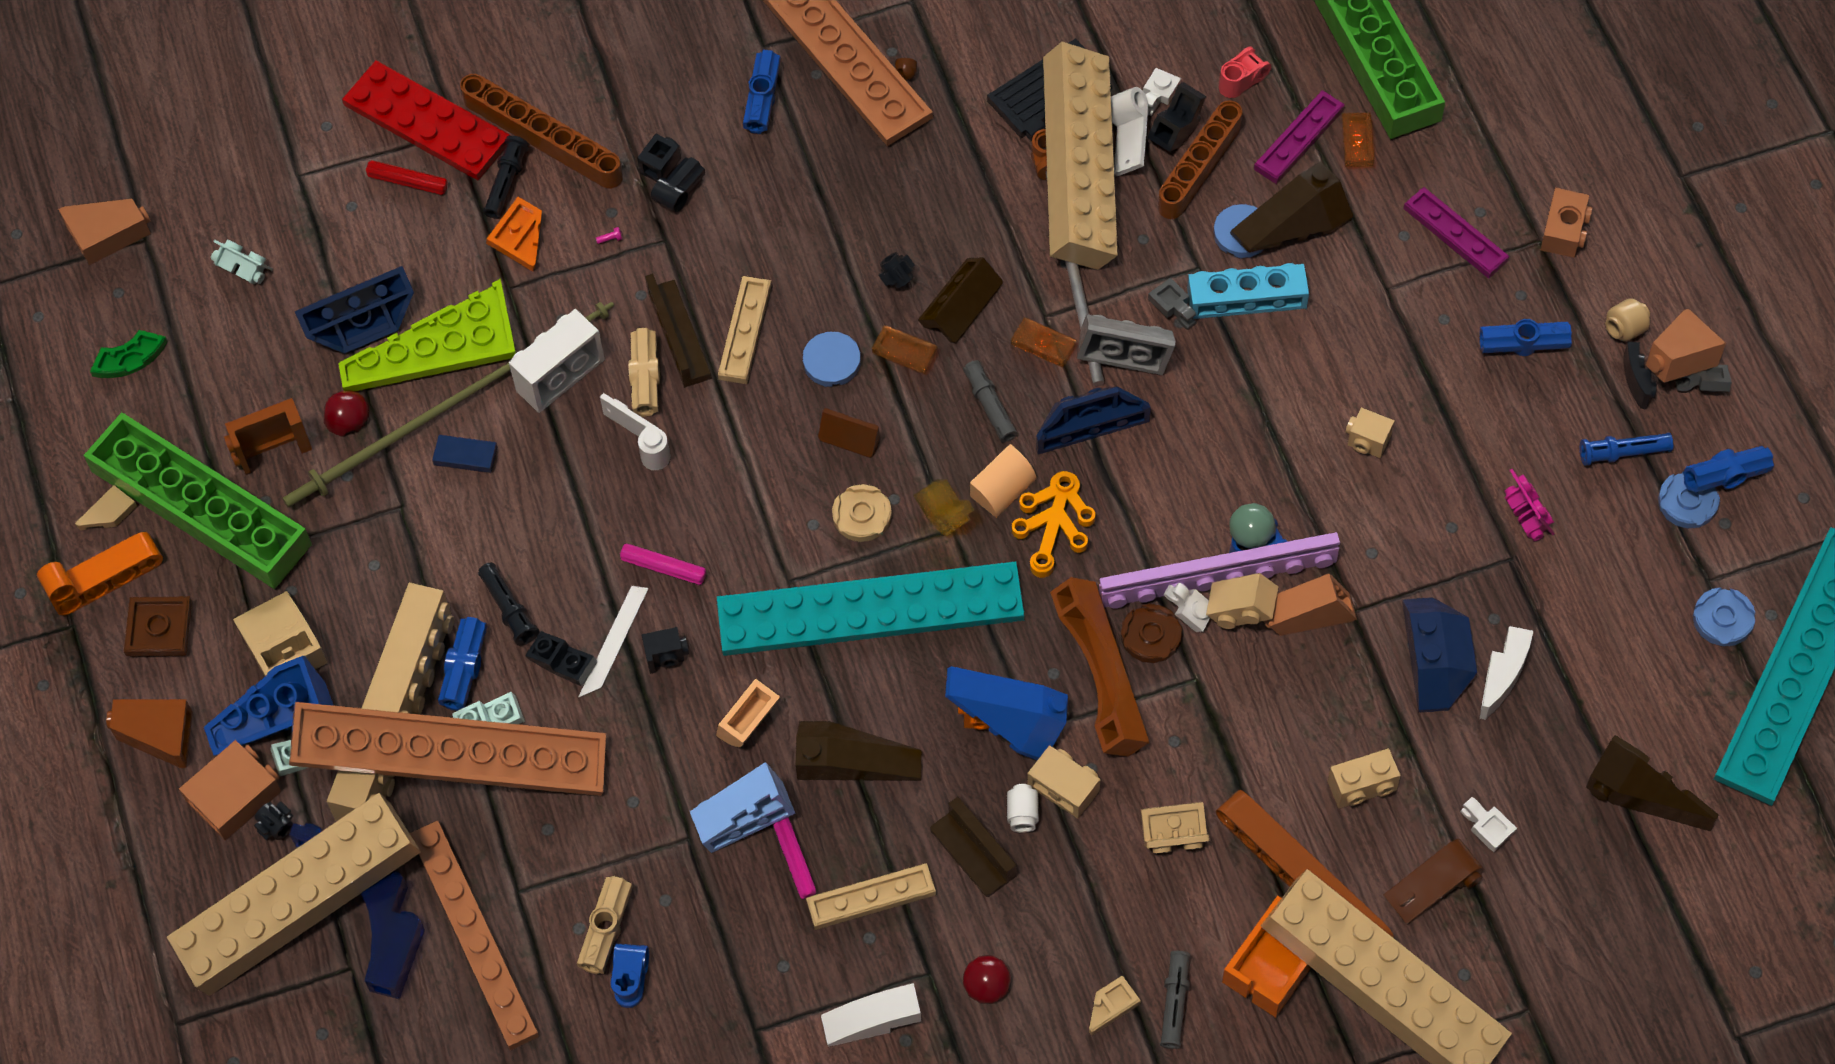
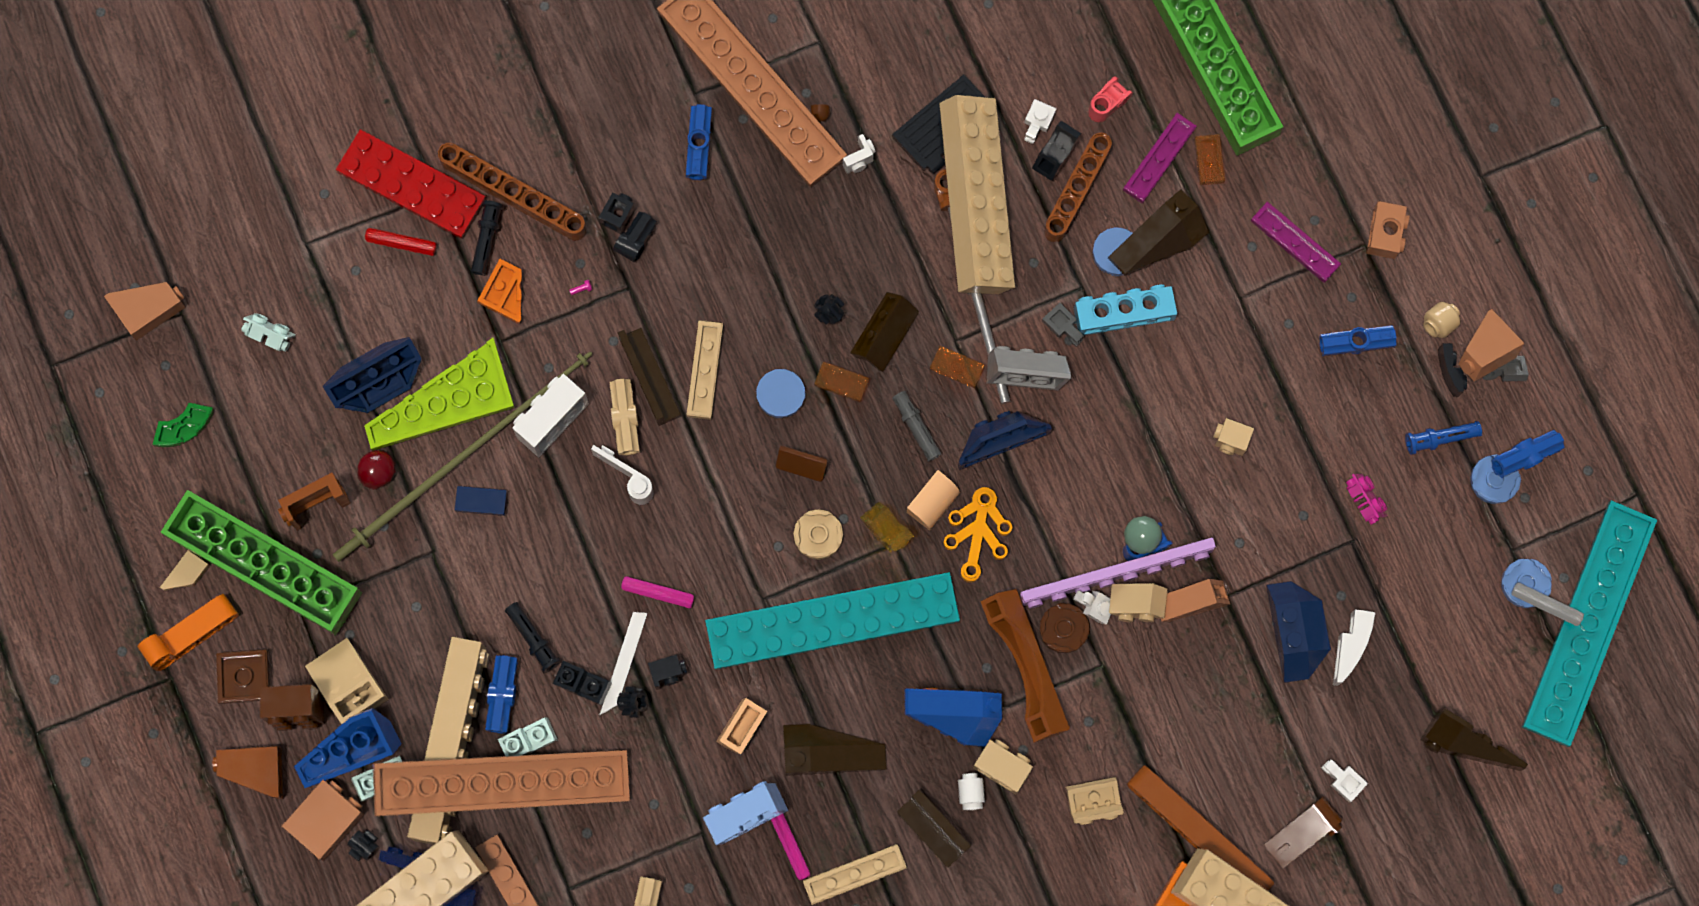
camera: 10 degrees left, 15 degrees up
(209, 651) = (292, 706): none -> reddish brown brick
(618, 679) = (632, 701): none -> black gear
(946, 117) = (857, 161): none -> white bracket
(1130, 115) = (1016, 148): white door -> none
(1363, 778) = (1244, 748): tan brick -> none
(1748, 636) = (1547, 604): none -> light grey axle

